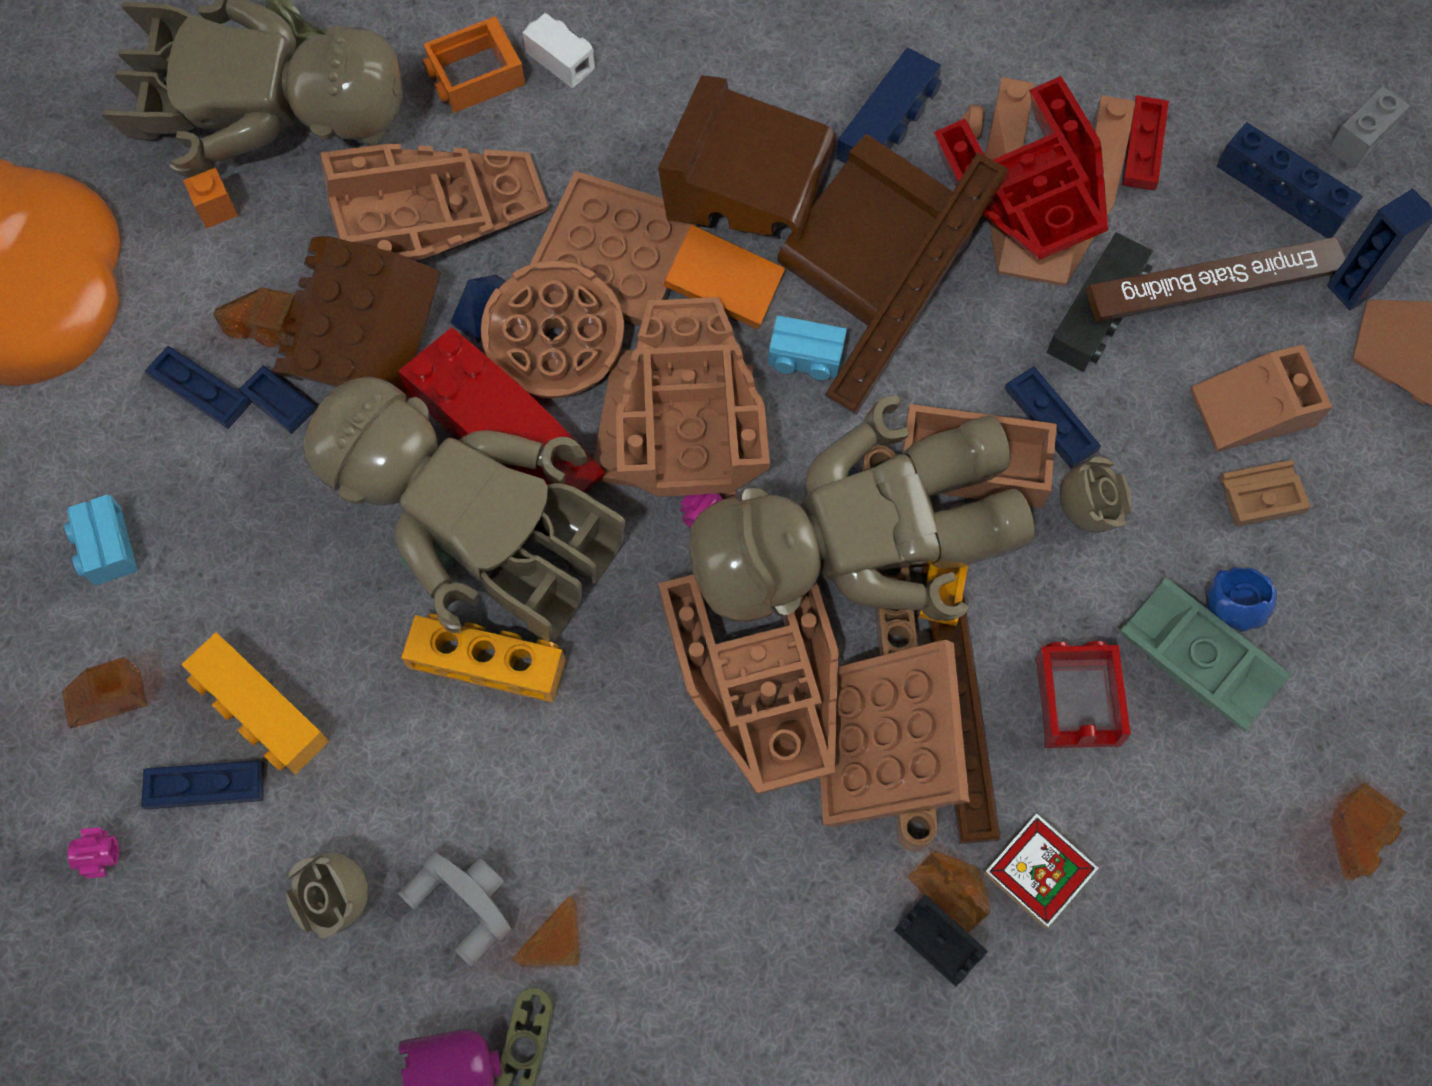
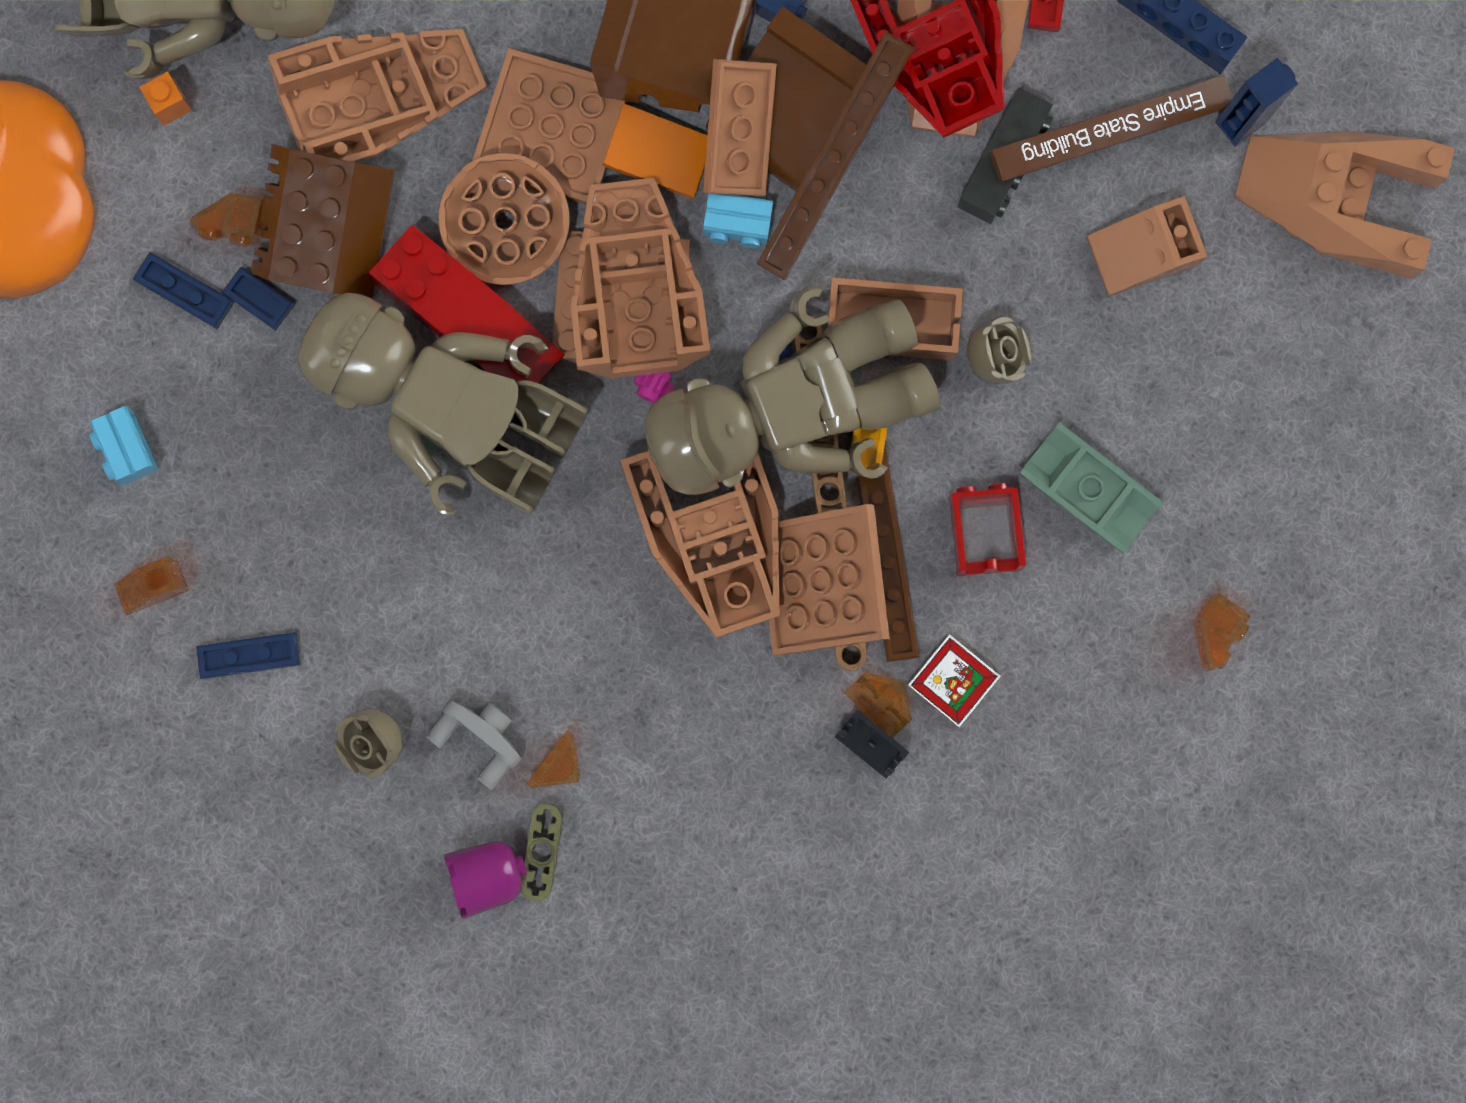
camera: 10 degrees left, 15 degrees up
(93, 852) = (168, 720): dark pink gear -> none
(255, 703) = (282, 584): light orange brick -> none
(472, 305) = (429, 192): dark blue slope -> none
(537, 681) = (524, 548): light orange brick -> none
(814, 249) = (739, 127): none -> nougat tile
(1043, 404) = (962, 271): dark blue tile -> none
(1242, 598) = (1124, 436): blue hair -> none
(1264, 493) = (1148, 335): medium nougat plate -> none

